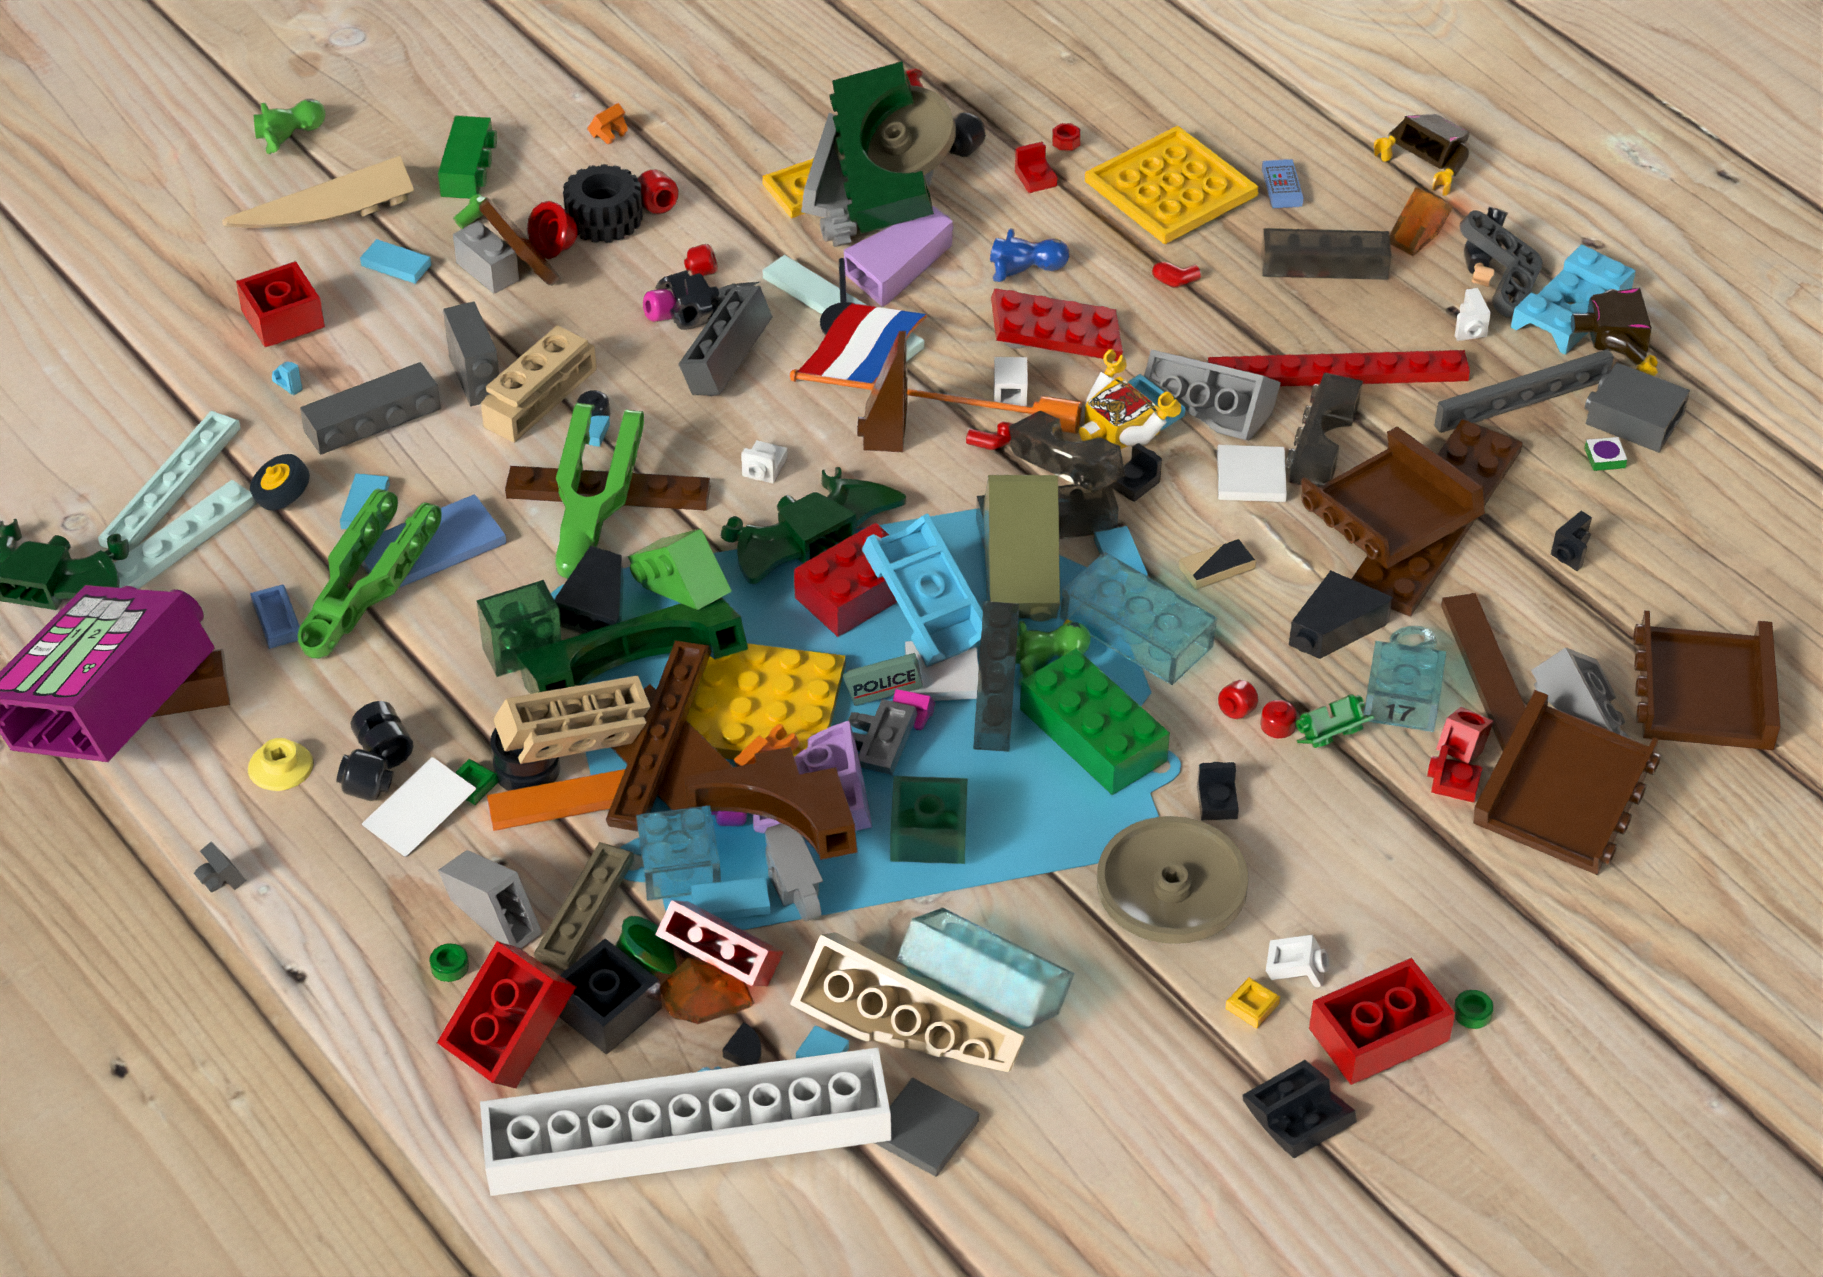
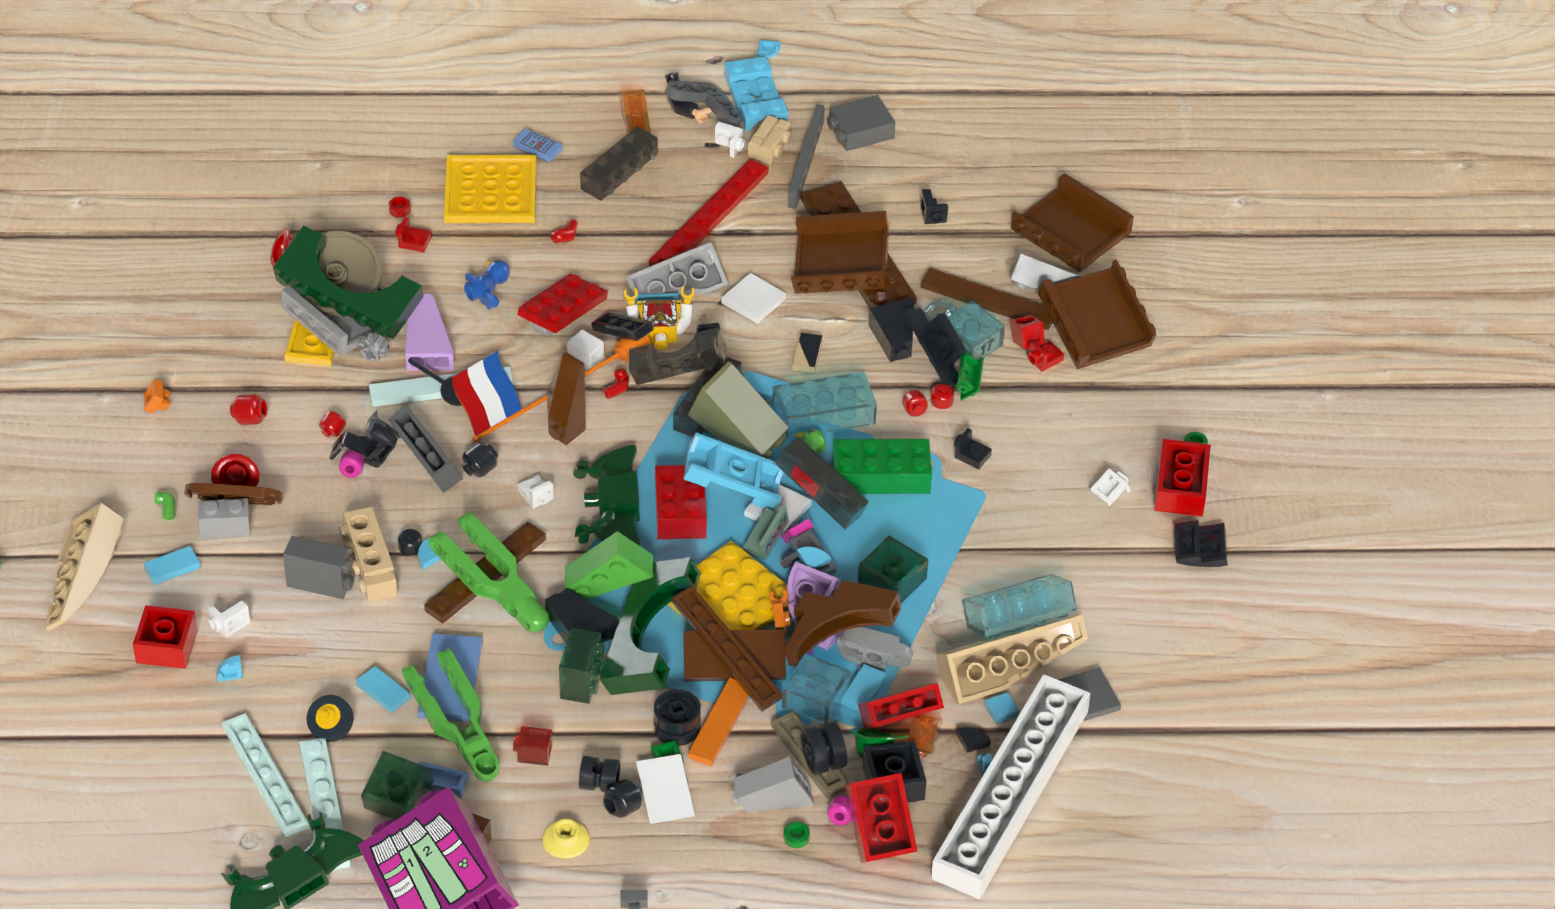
camera: 55 degrees left, 0 degrees up
(218, 578) = (396, 786): none -> clear green brick
(354, 339) = (229, 621): none -> white bracket
(370, 408) = (306, 643): dark grey brick -> none
(381, 660) = (533, 745): none -> clear red brick
(466, 157) = (113, 479): green brick -> none
(571, 715) = (695, 672): tan brick -> none
(573, 902) = (824, 748): none -> black wheel
(604, 202) = (236, 433): black tyre -> none
(758, 390) = (479, 459): none -> black head
(874, 735) = (813, 557): none -> medium azure tile
(1071, 387) = (622, 326): none -> black tile
(1172, 879) = (1021, 500): dark tan dish -> none
(1252, 1002) = (1119, 521): yellow tile -> none
(1332, 407) = (771, 265): clear smoke arch -> none
(1342, 657) = (938, 342): none -> black bracket
(1432, 140) = (580, 64): dark brown torso -> none
(1511, 347) = (769, 140): none -> tan brick
(1605, 453) = (878, 157): tile -> none
(1619, 324) = (805, 87): dark brown torso -> none
(1661, 272) = (768, 48): none -> medium azure tile

